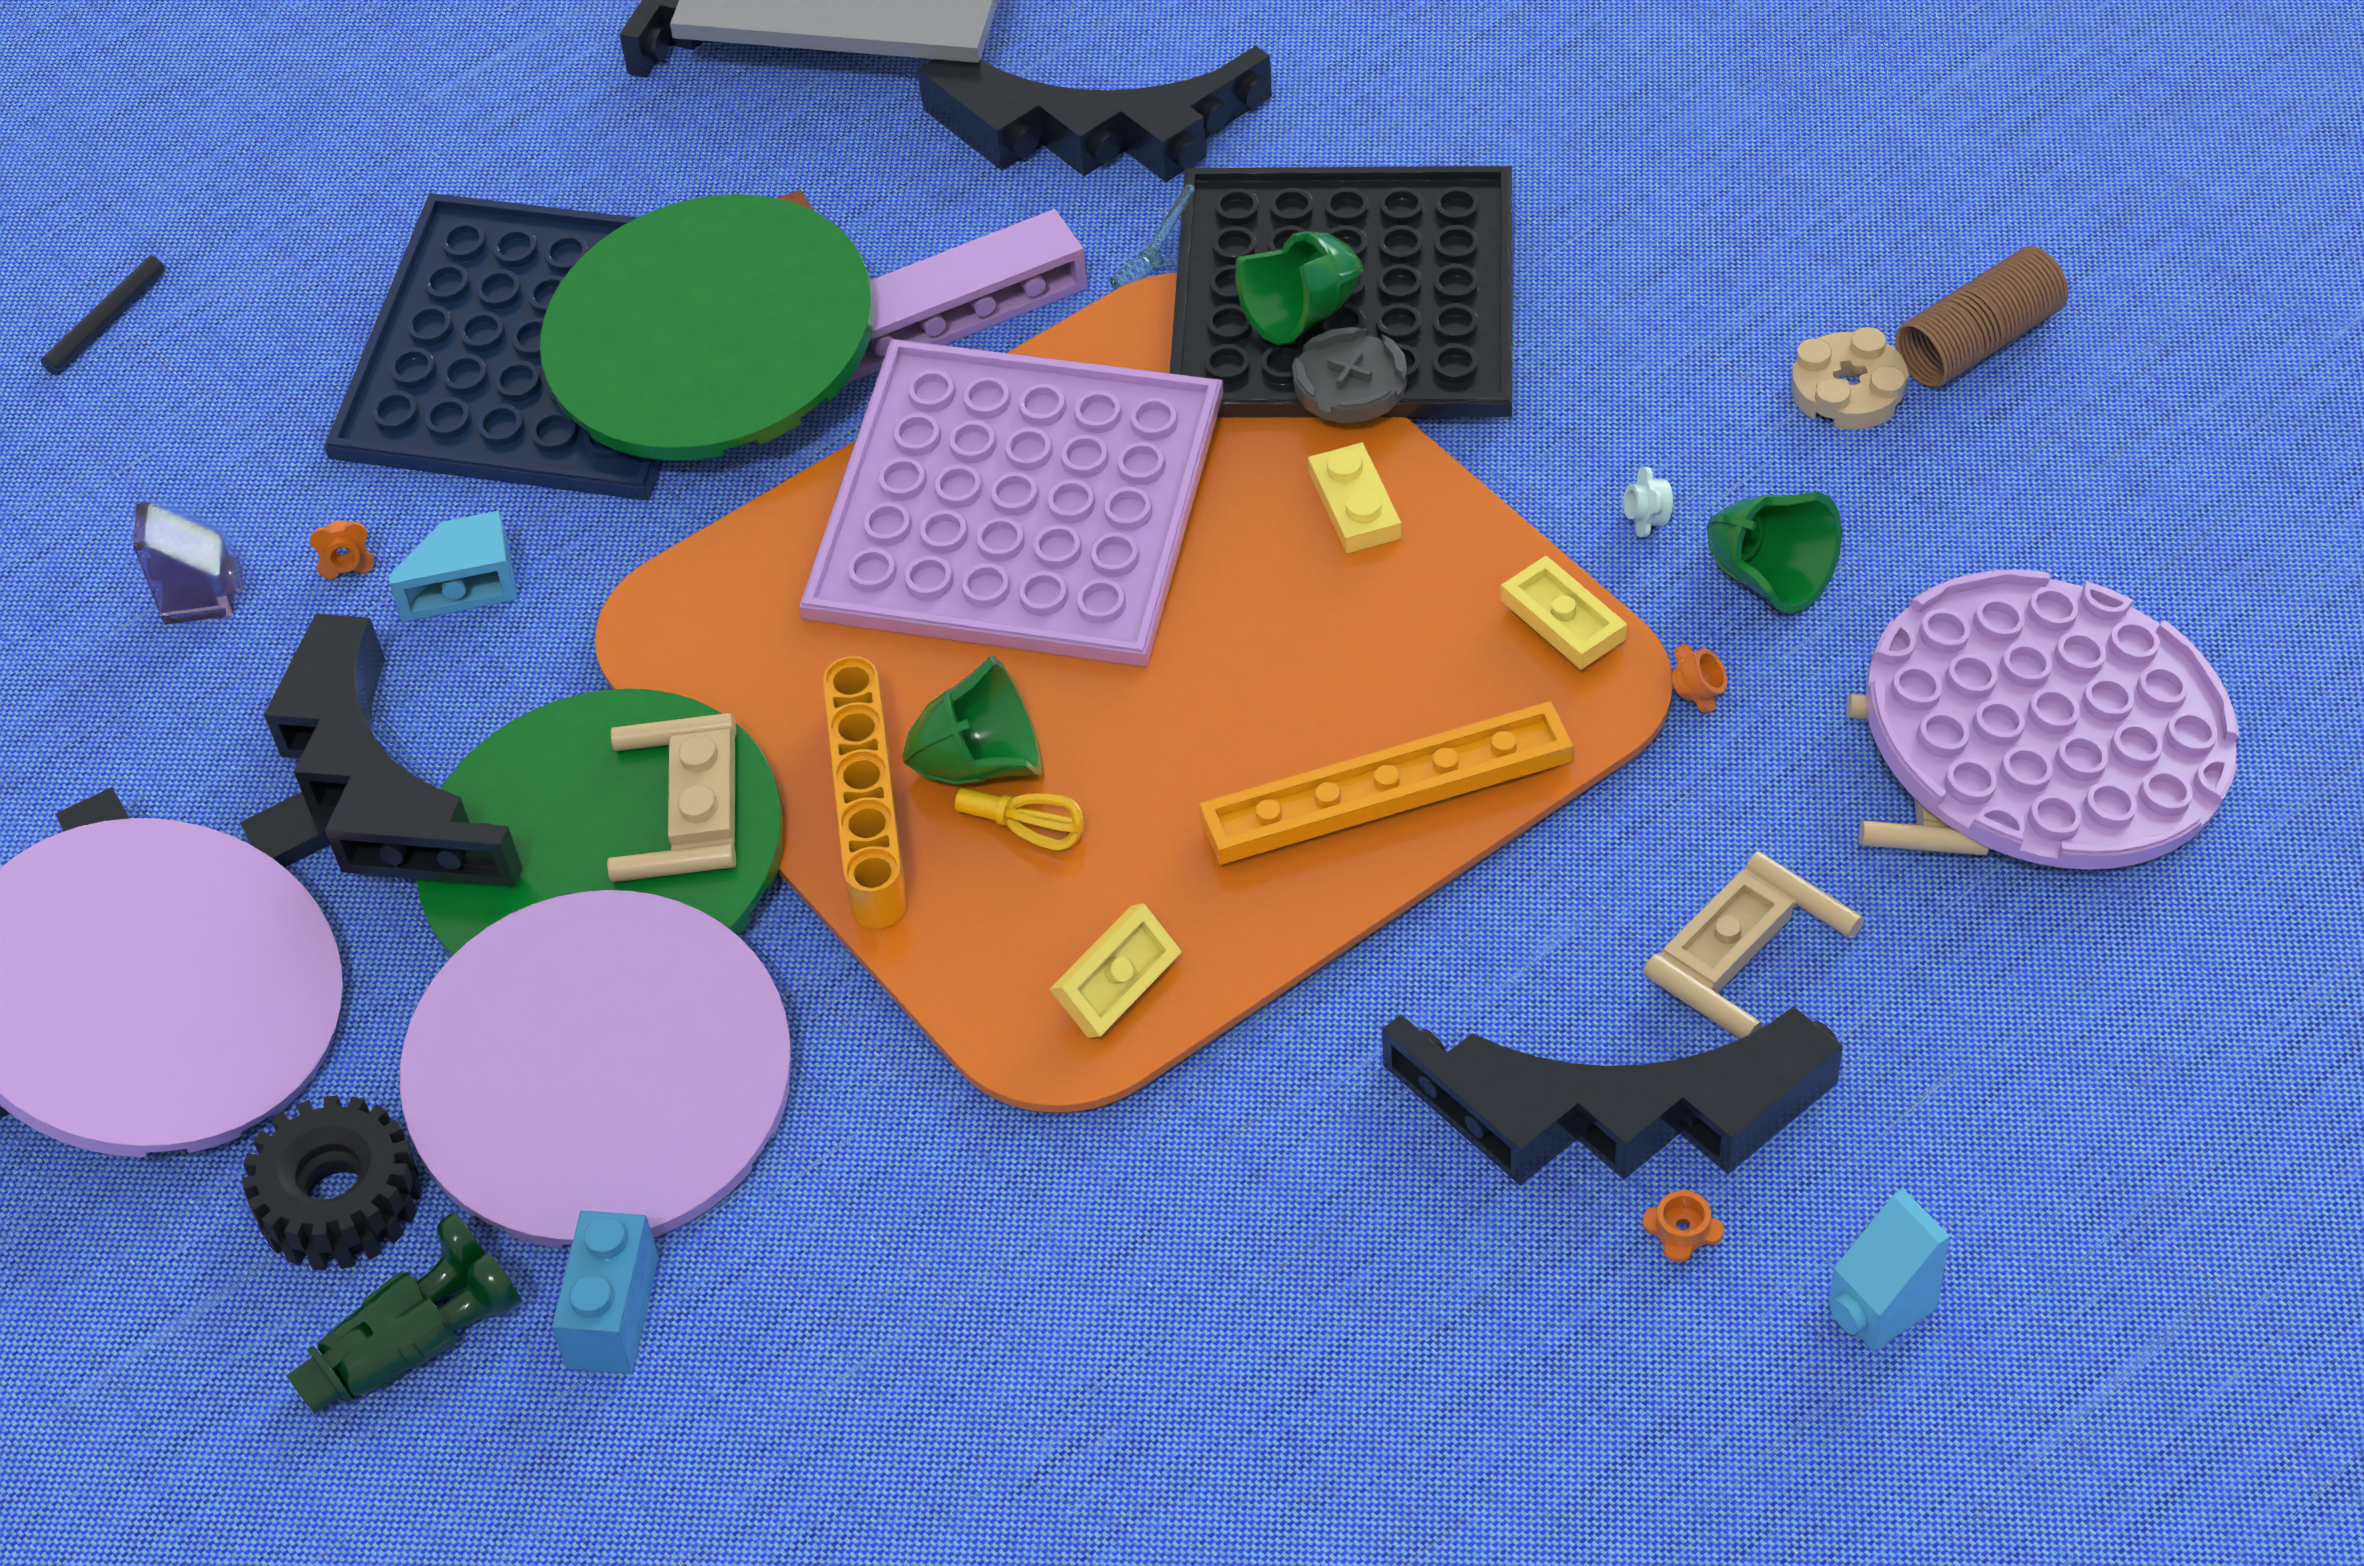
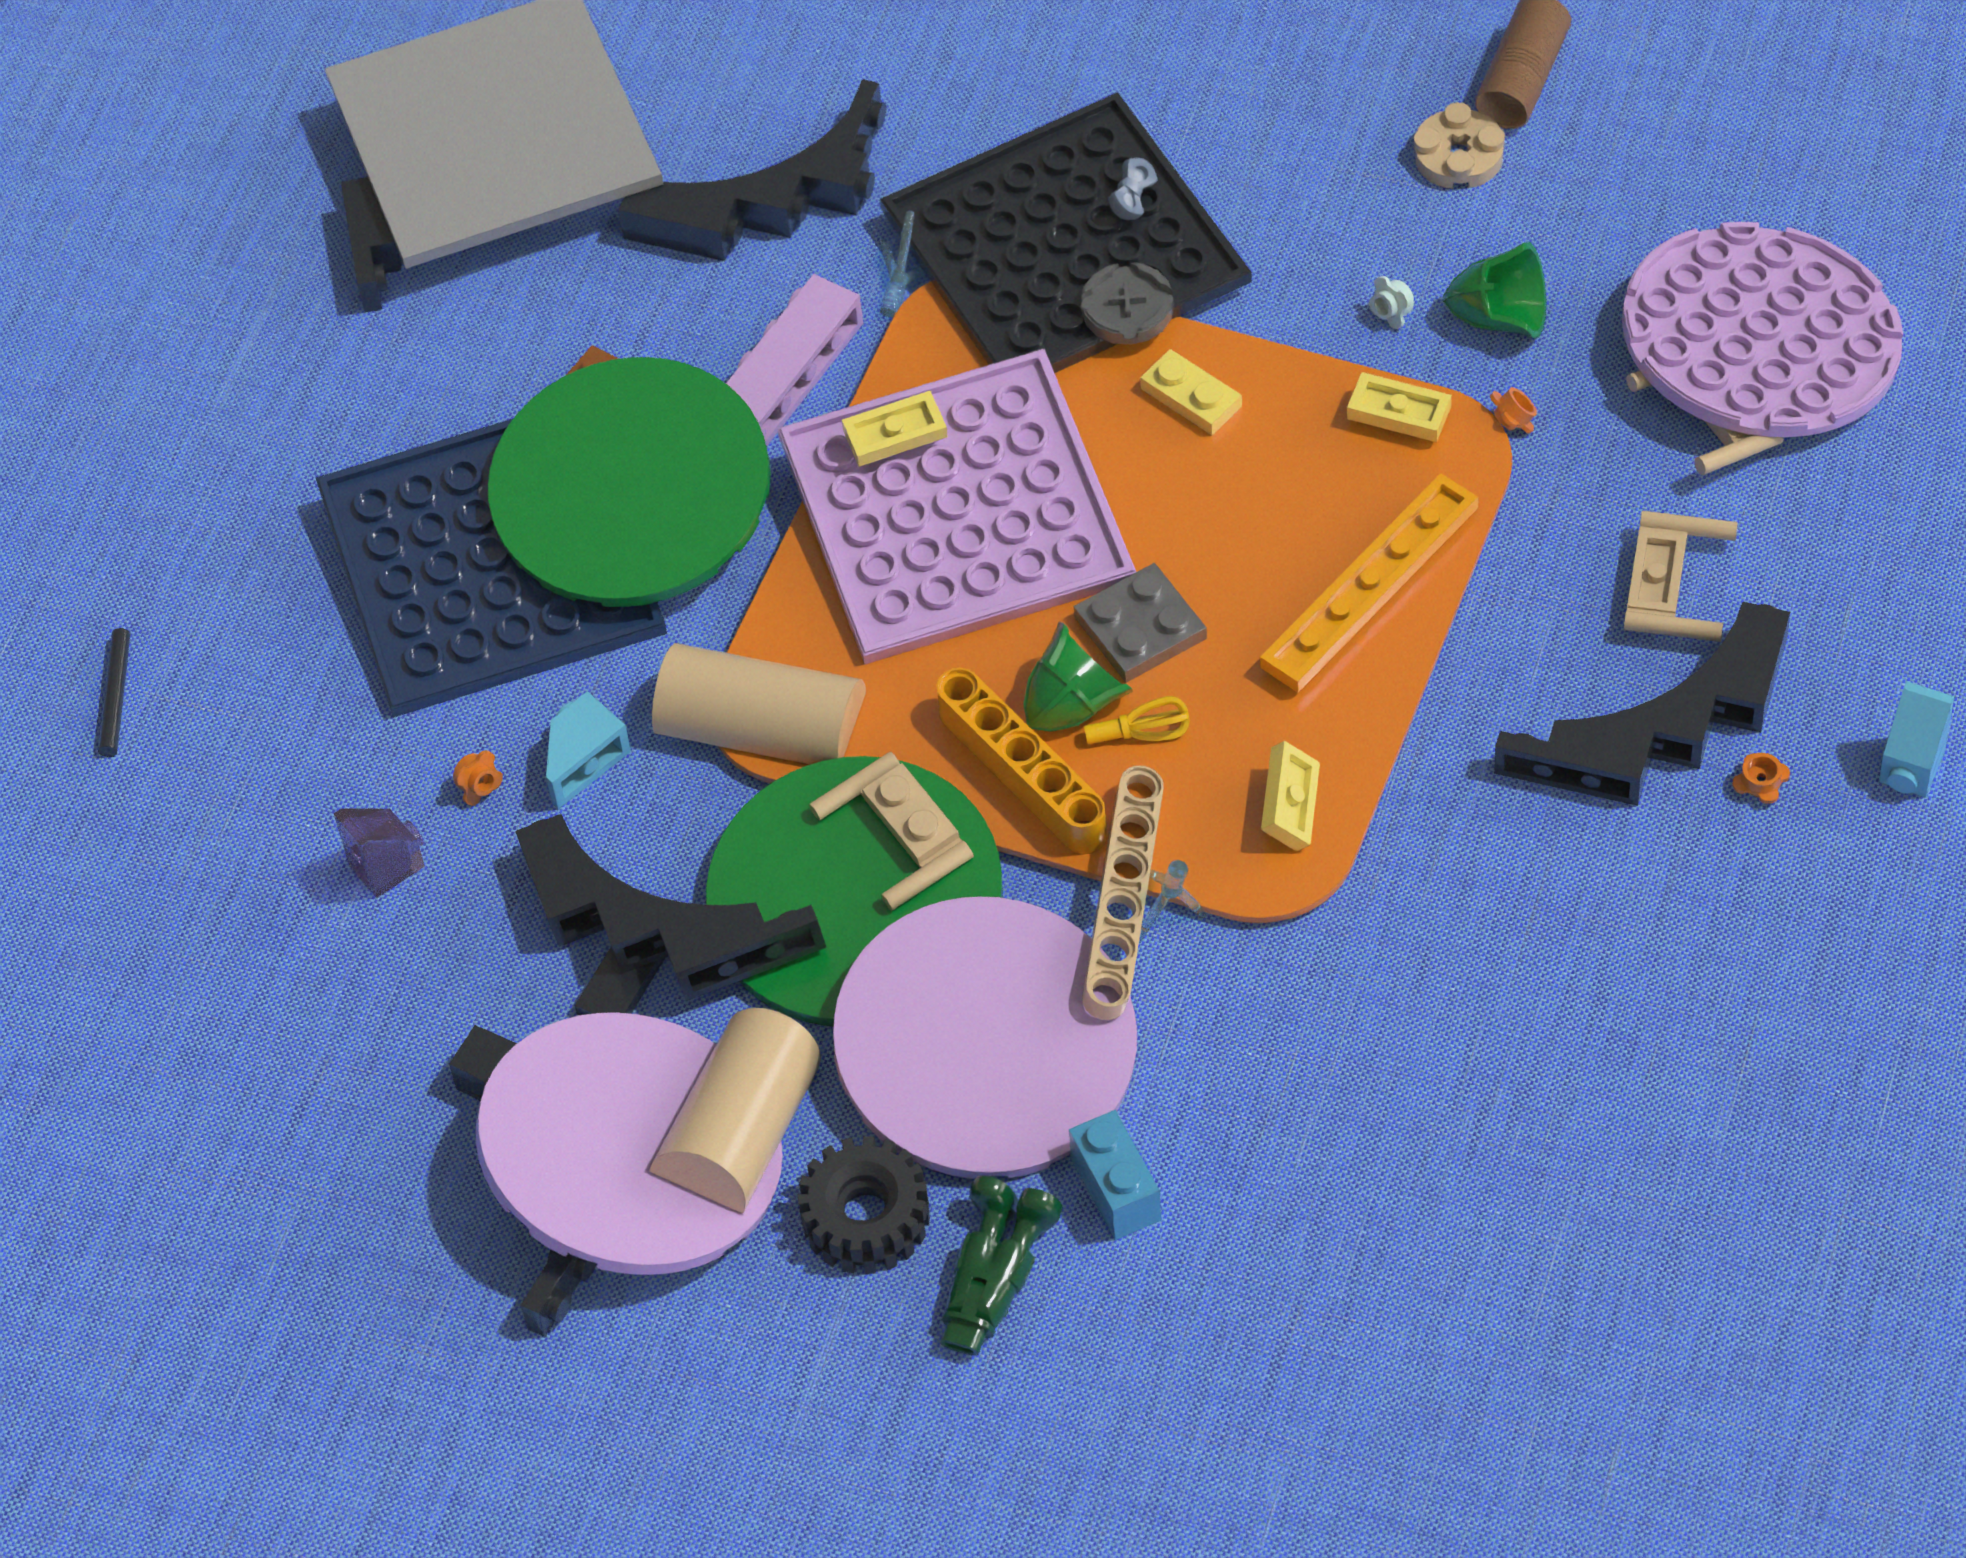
camera: 30 degrees left, 5 degrees up
(281, 1011) = (740, 1107): none -> tan brick
(651, 602) = (755, 705): none -> tan brick
(850, 976) = (1125, 891): none -> tan beam
(901, 1003) = (1171, 887): none -> clear light blue plant
(996, 387) = (894, 428): none -> light yellow plate
(1111, 709) = (1140, 622): none -> flat silver plate
(1297, 285) = (1047, 255): green helmet -> none
(1426, 270) = (1126, 199): none -> sand blue piece

